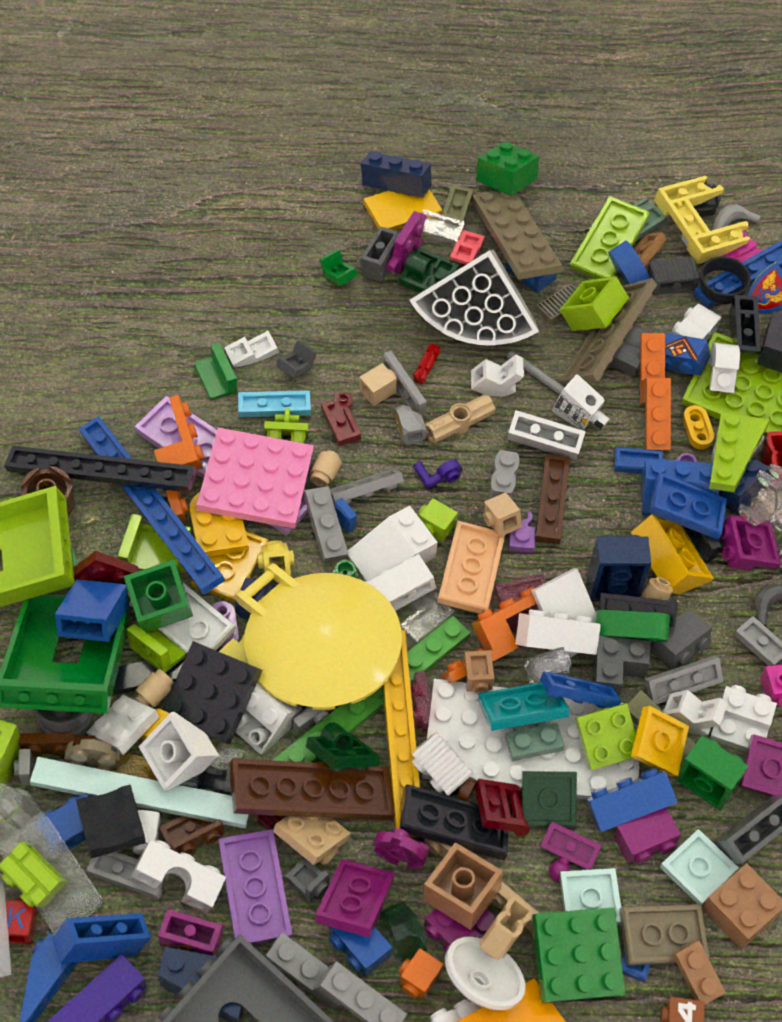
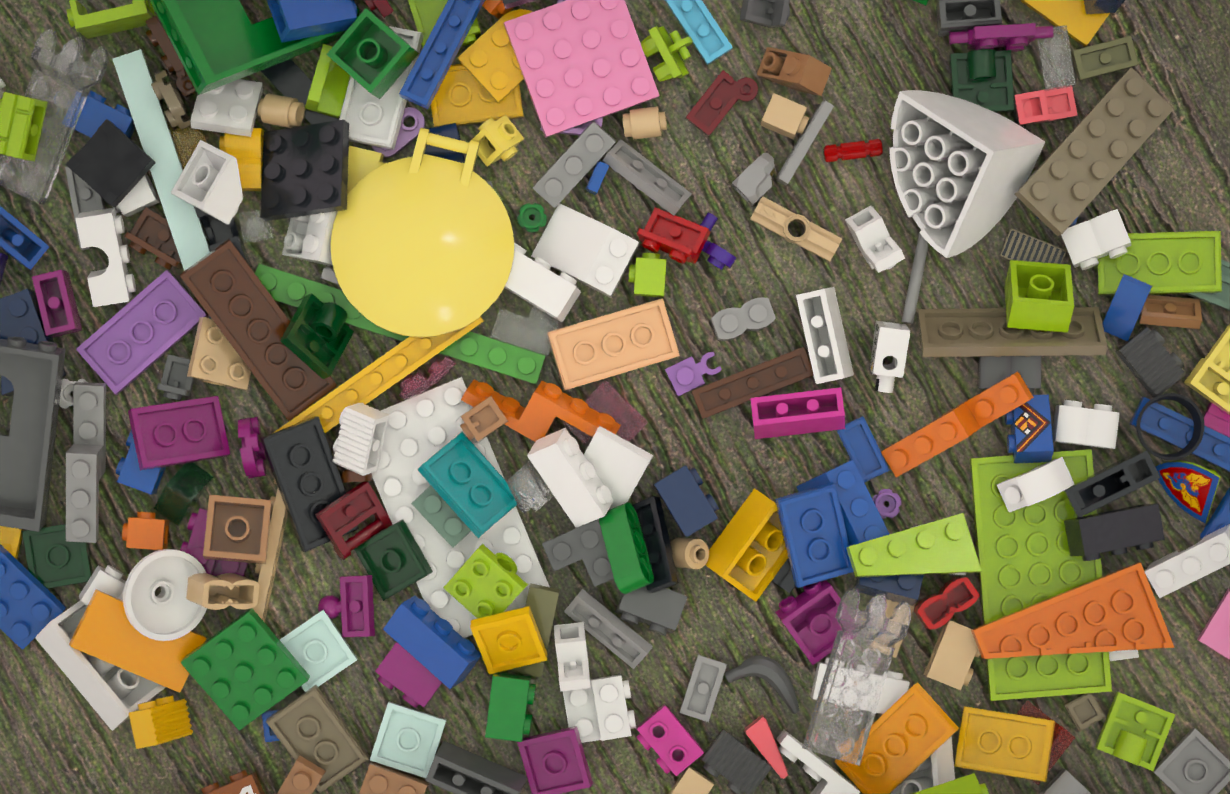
camera: 65 degrees right, 30 degrees up
(24, 766) = (131, 40): light grey plate -> none
(349, 365) = (794, 71): none -> medium nougat slope
(418, 488) = (673, 235): none -> red bracket
(502, 514) = (691, 342): tan brick -> none
(507, 168) = (1189, 88): green brick -> none
(574, 259) = (1096, 239): none -> white brick
(579, 690) = (515, 534): blue plate -> none
(592, 478) = (798, 413): none -> dark pink brick
(700, 429) = (945, 494): yellow plate -> none

